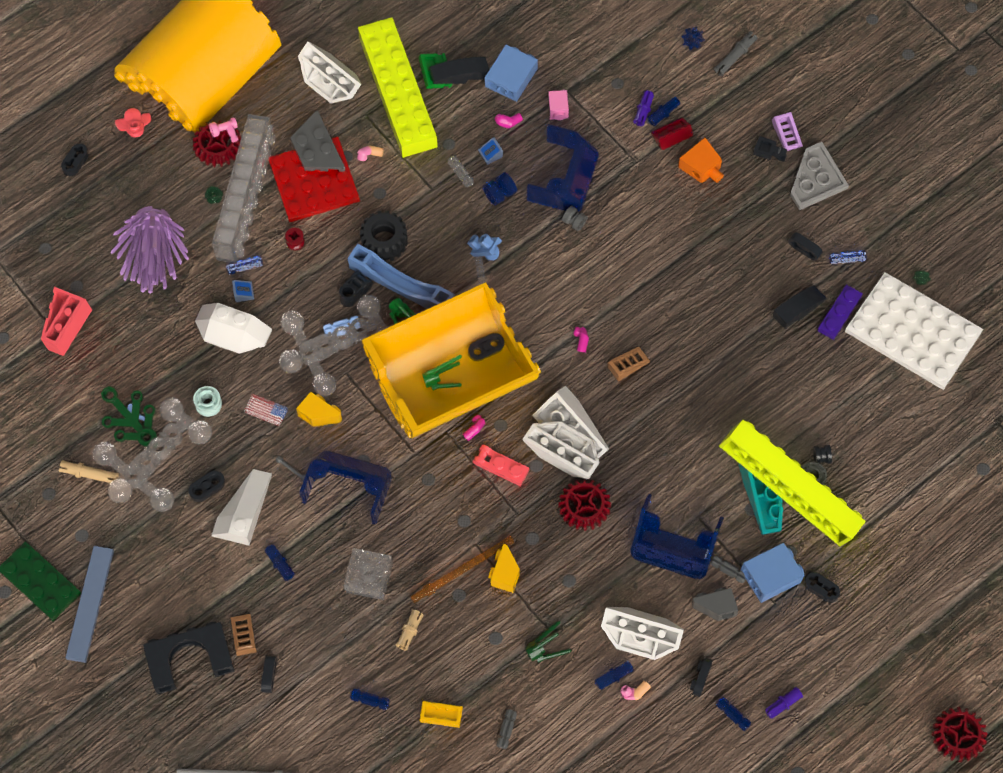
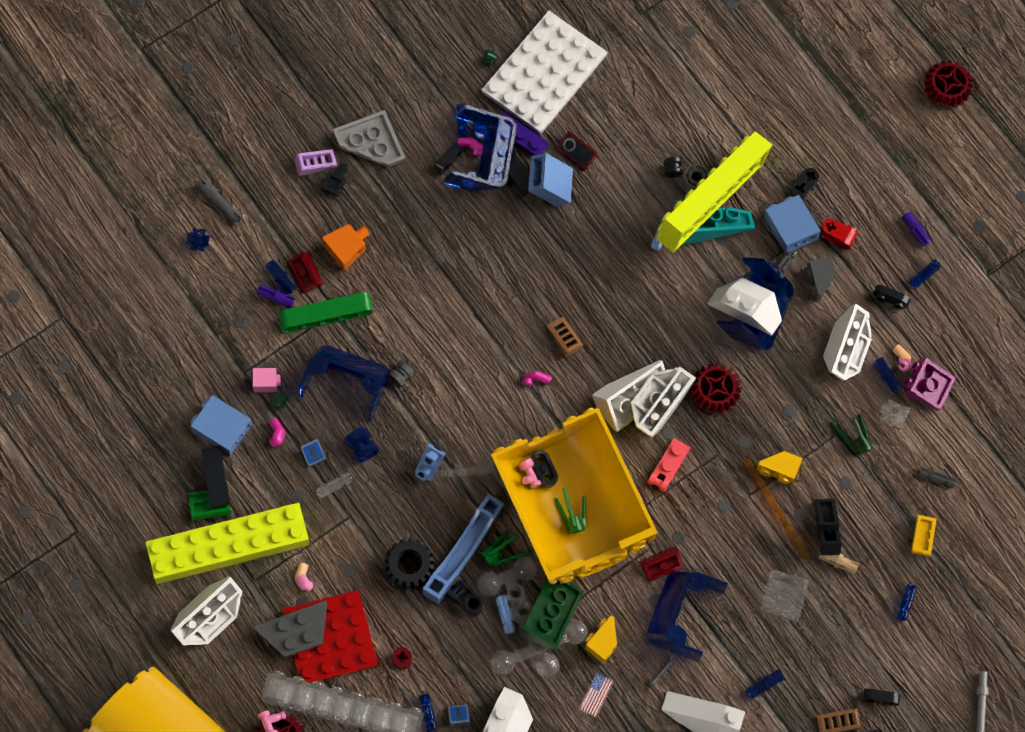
camera: 95 degrees left, 5 degrees up
(338, 358) = (551, 613): none -> dark green plate
(399, 463) = (661, 563): none -> dark red slope
(444, 616) = (827, 527): none -> black slope
(472, 334) = (531, 477): none -> bright pink piece
(540, 119) = (279, 400): none -> clear green plate
(571, 688) = (891, 419): none -> clear brick
(607, 716) = (928, 383): none -> magenta plate
(631, 150) = (325, 312): none -> green beam
(675, 530) = (748, 304): none -> white wedge
(768, 623) = (840, 234): none -> red piece
(789, 334) = (550, 179): none -> medium blue brick
(824, 268) = (472, 143): none -> dark pink arm
(830, 364) = (576, 150): none -> slope
(835, 287) = (498, 139): none -> clear blue windscreen

